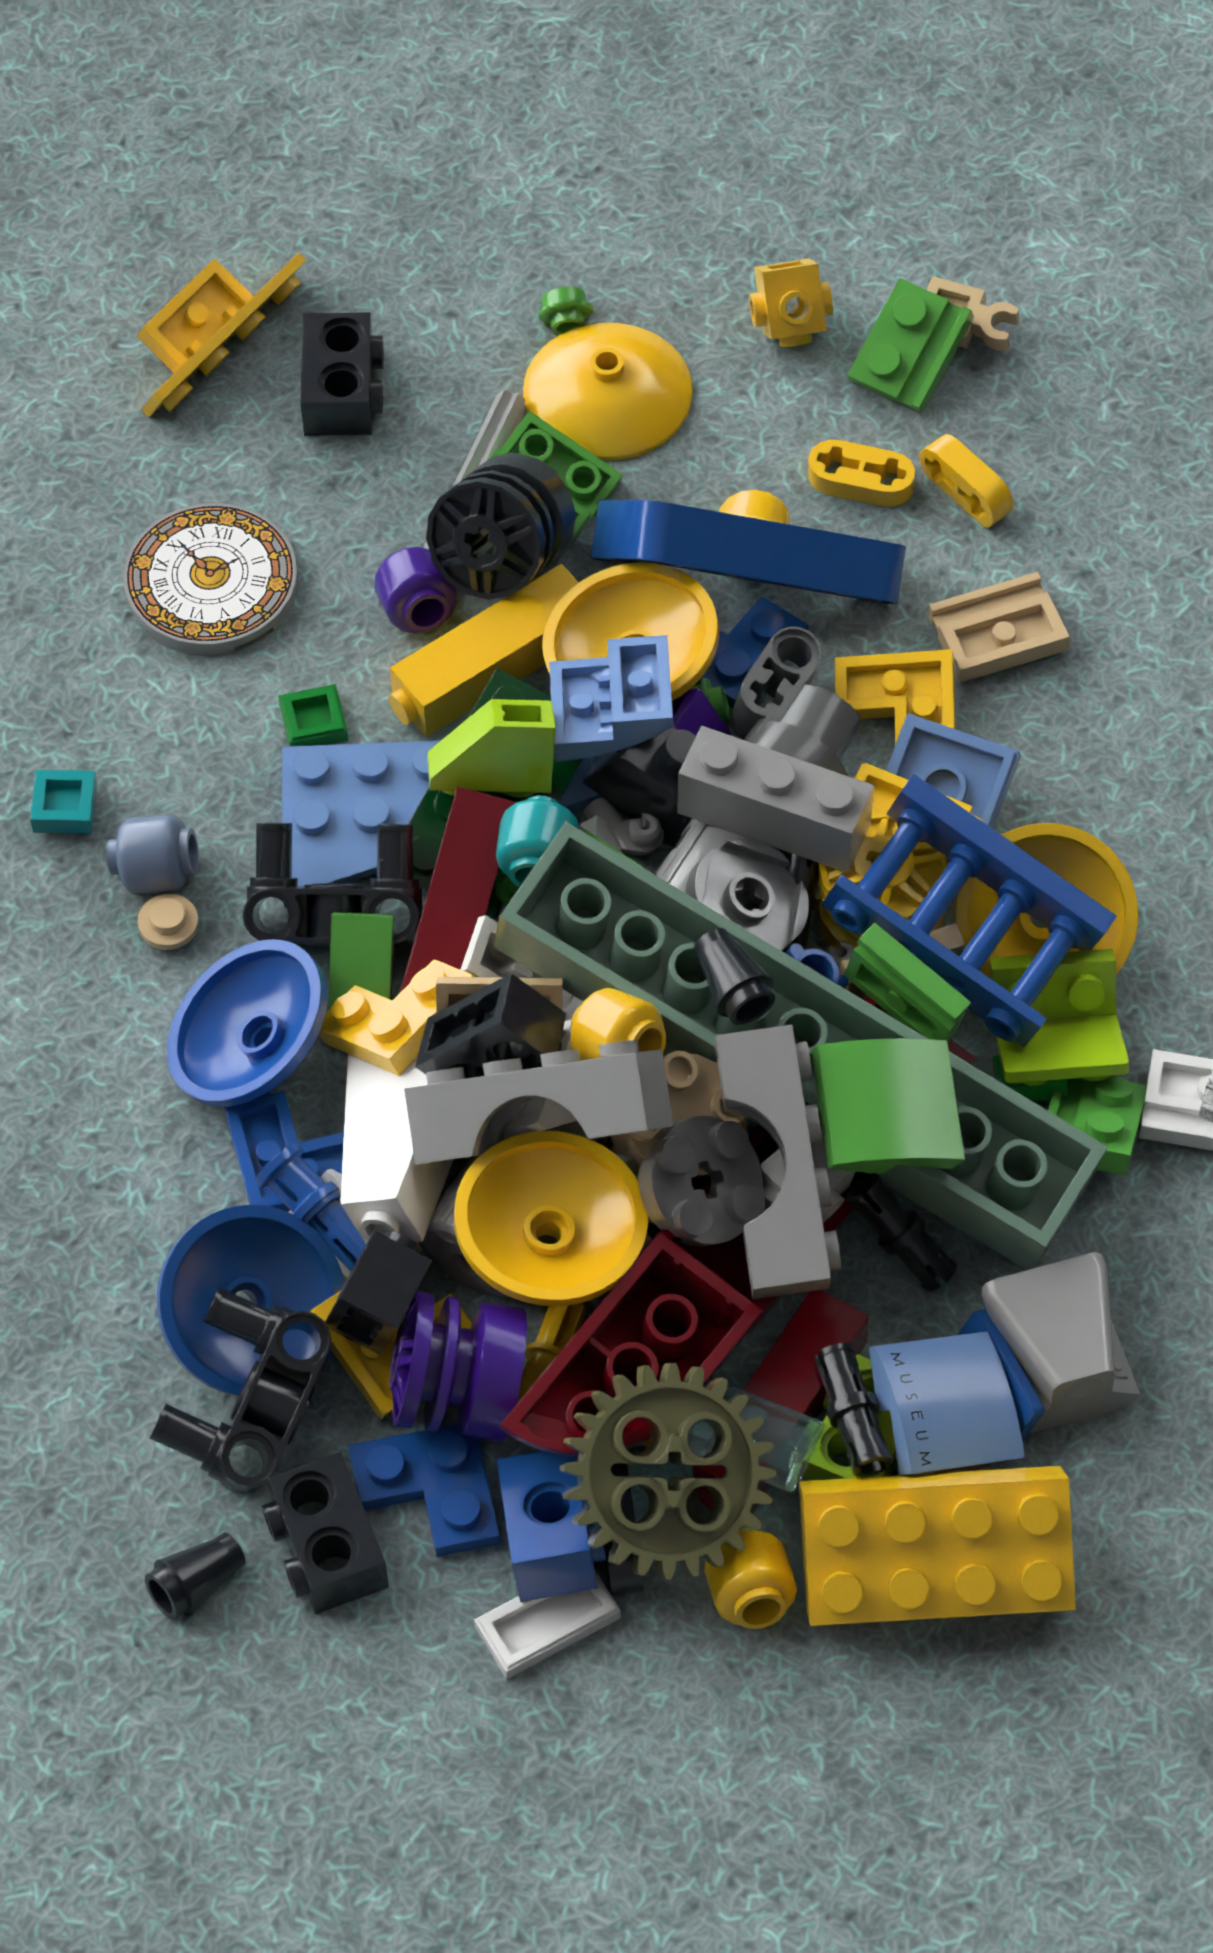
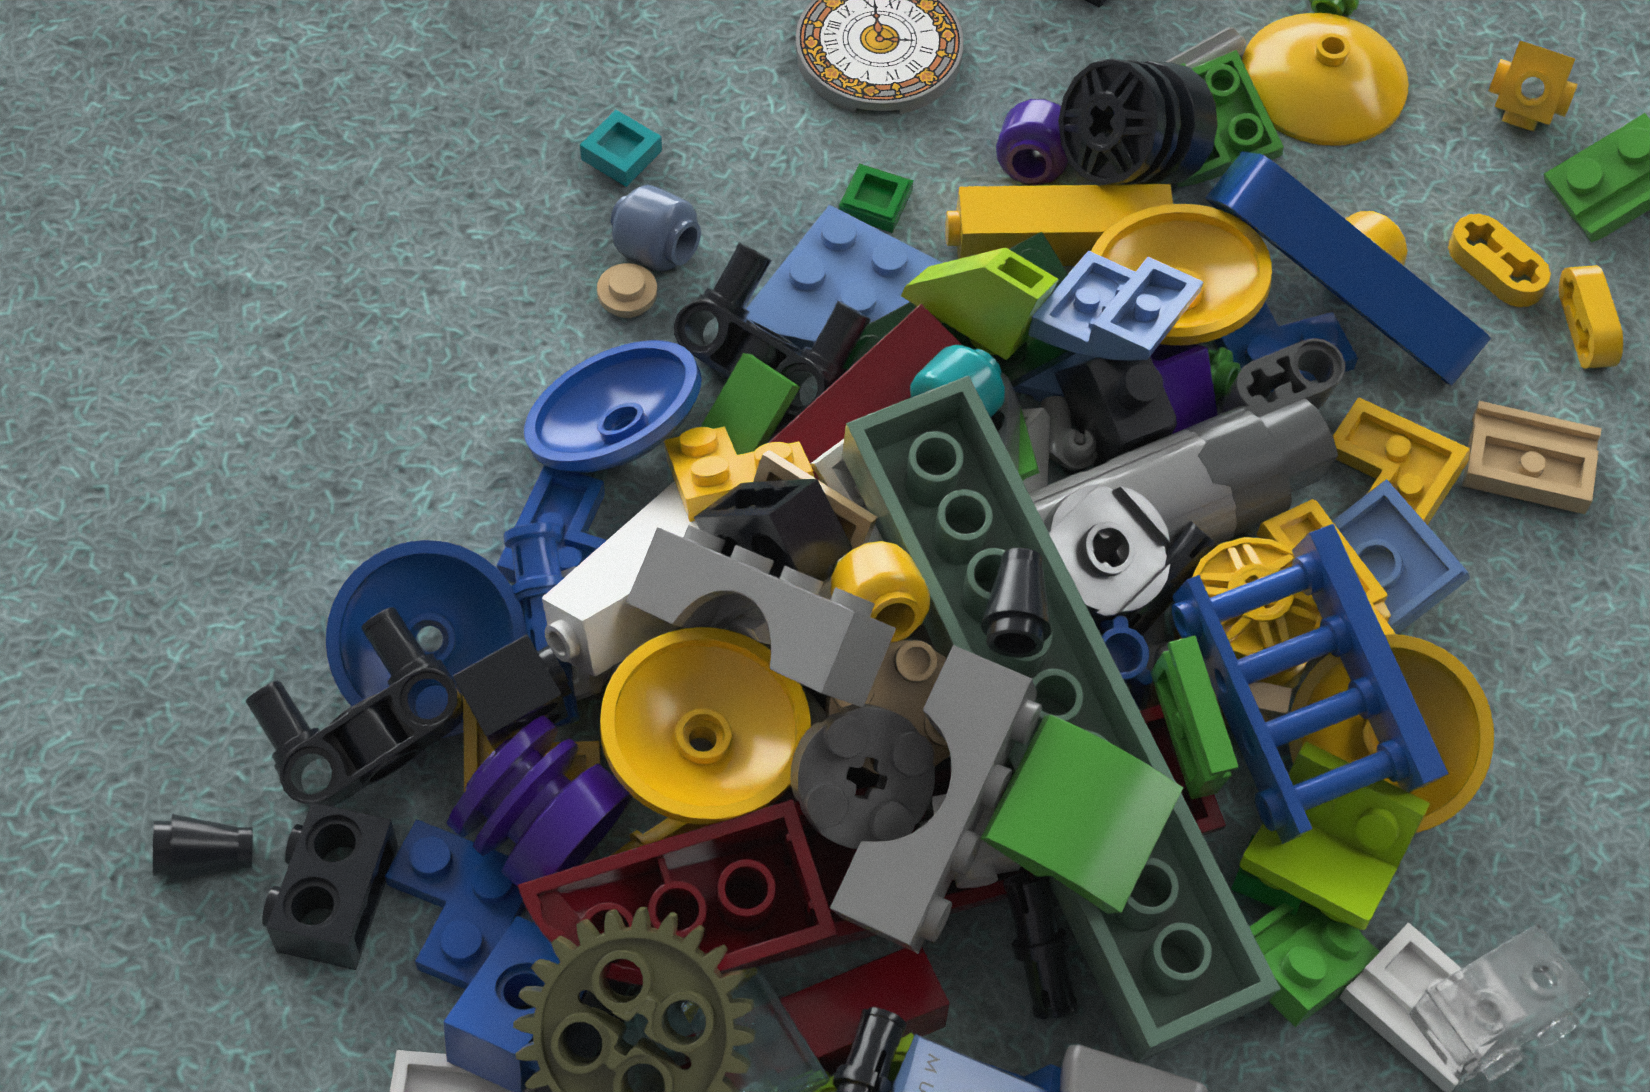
camera: 30 degrees right, 0 degrees up
(774, 799) = (1193, 475): light grey brick -> none

